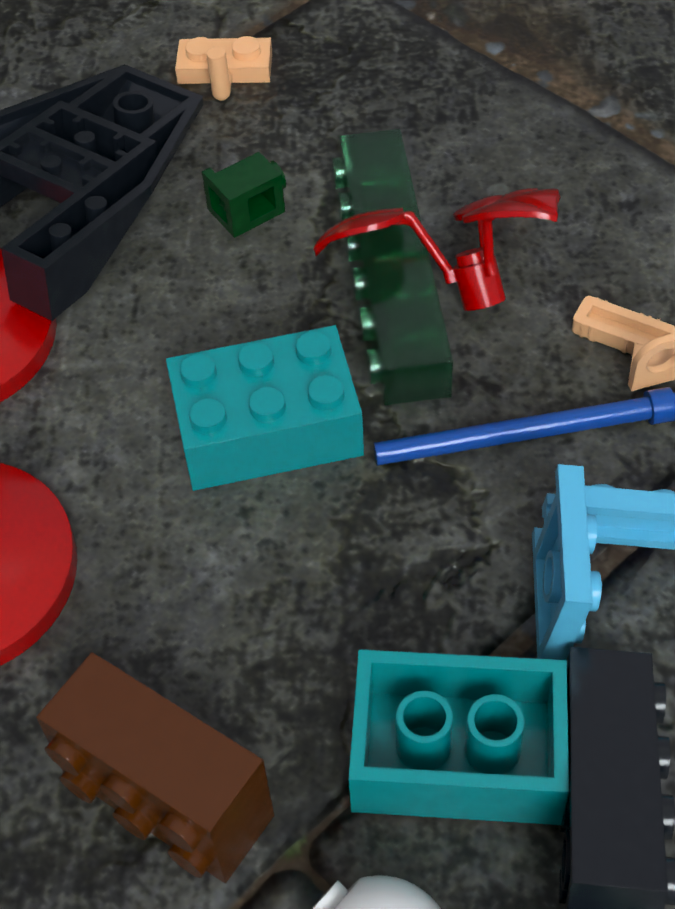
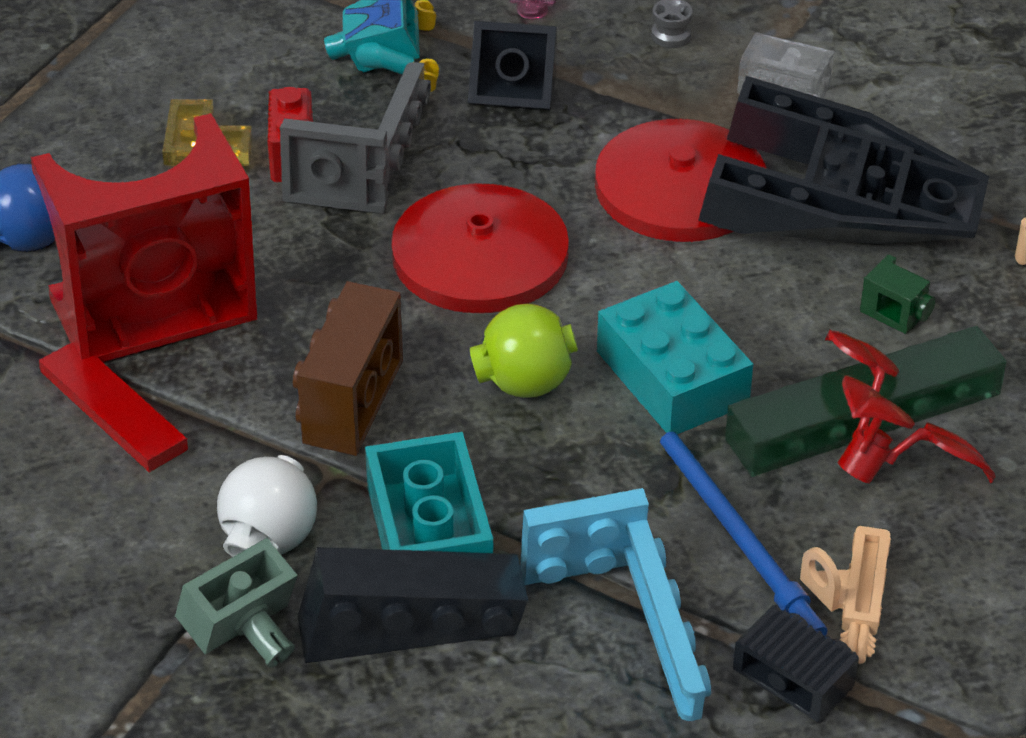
camera: 70 degrees right, 10 degrees down
(207, 550) = (525, 351): none -> lime brick

